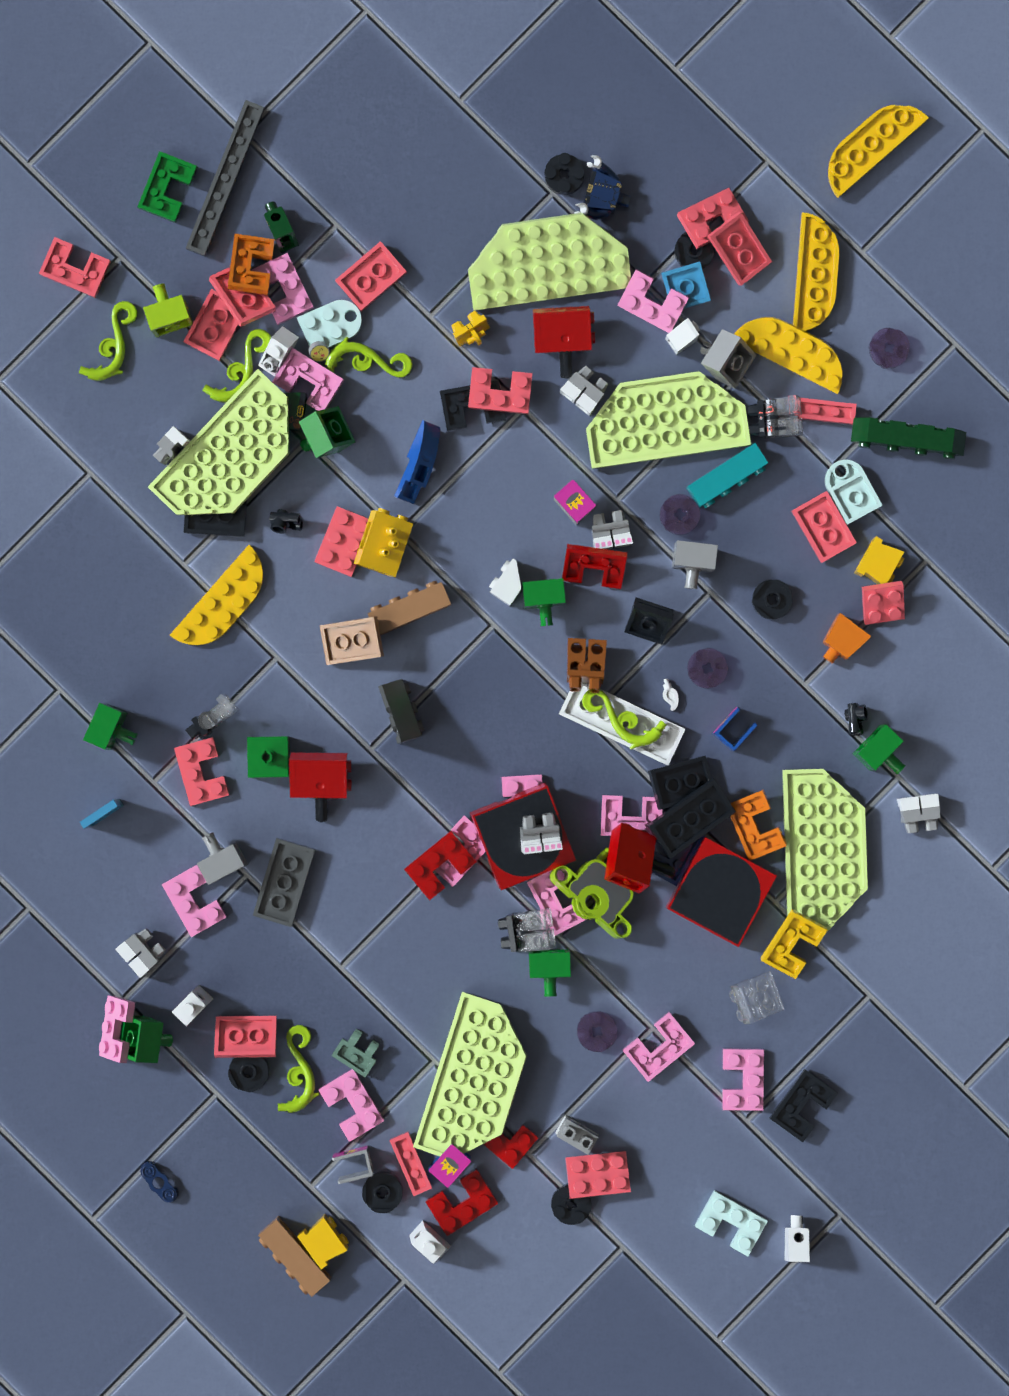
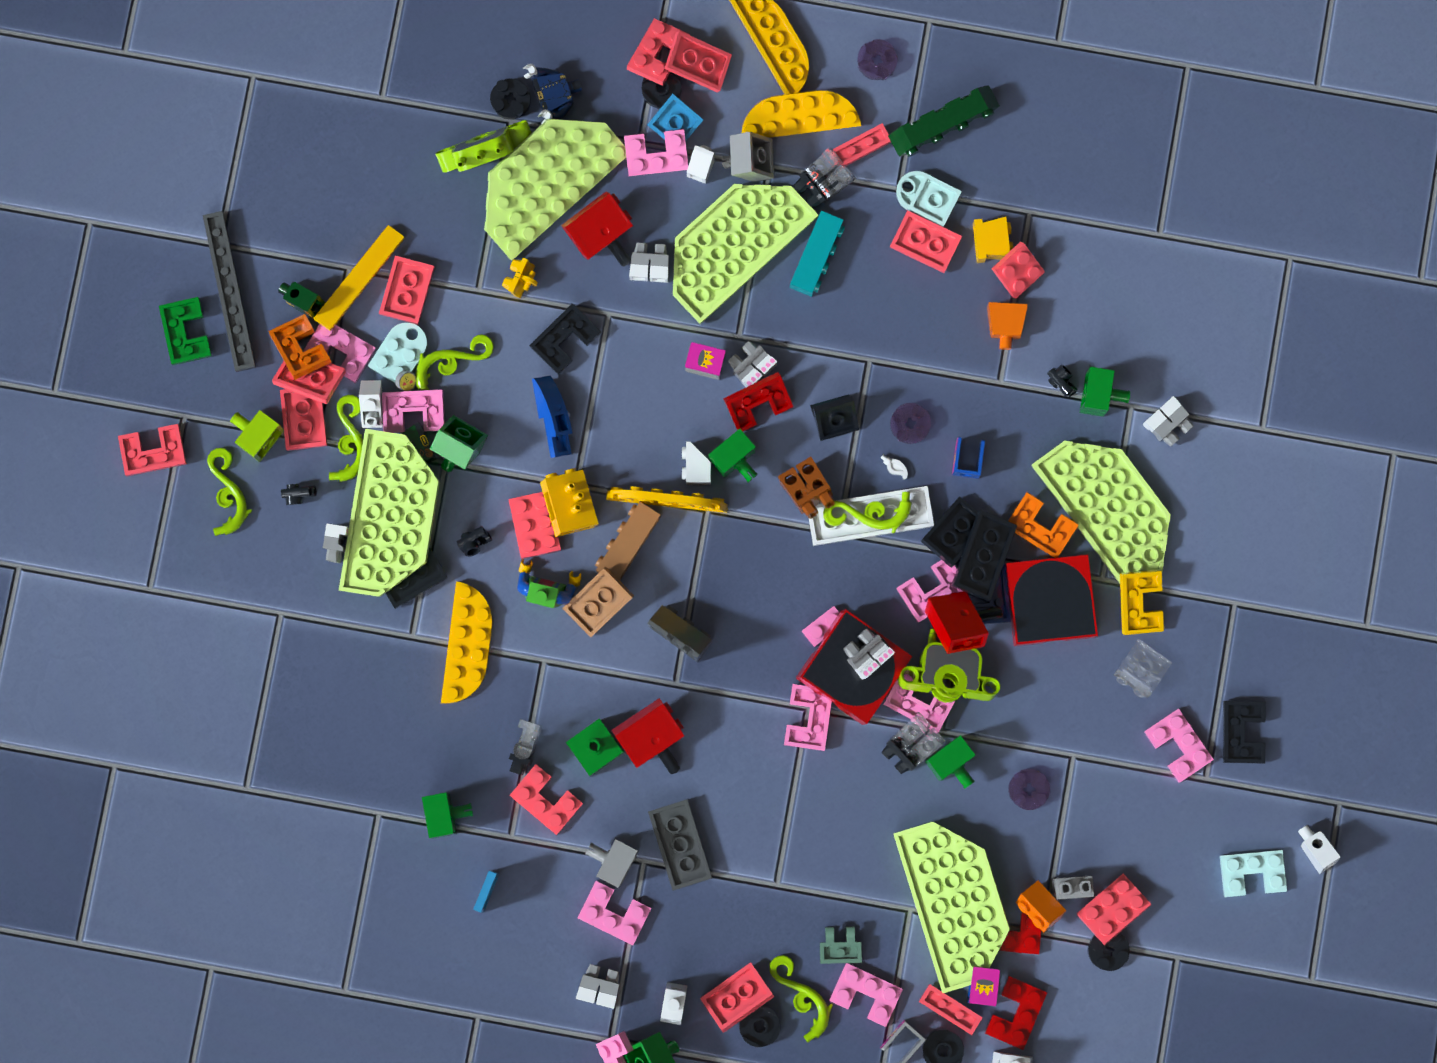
camera: 30 degrees left, 5 degrees down
(165, 383) = (294, 494): none -> black plate
(314, 602) = (545, 591): none -> torso
(338, 239) = (359, 278): none -> yellow tile
(445, 849) = (788, 751): red plate -> none
(471, 599) = (675, 499): none -> yellow plate
(510, 401) = (597, 311): coral plate -> none
(513, 200) = (483, 147): none -> lime piece
(539, 1132) = (1040, 906): none -> orange piece
(674, 1046) = (1094, 783): bright pink plate -> none
(687, 506) = (799, 300): clear purple plate -> none
(694, 558) = (837, 339): light grey brick -> none
(783, 599) = (932, 338): black plate -> none

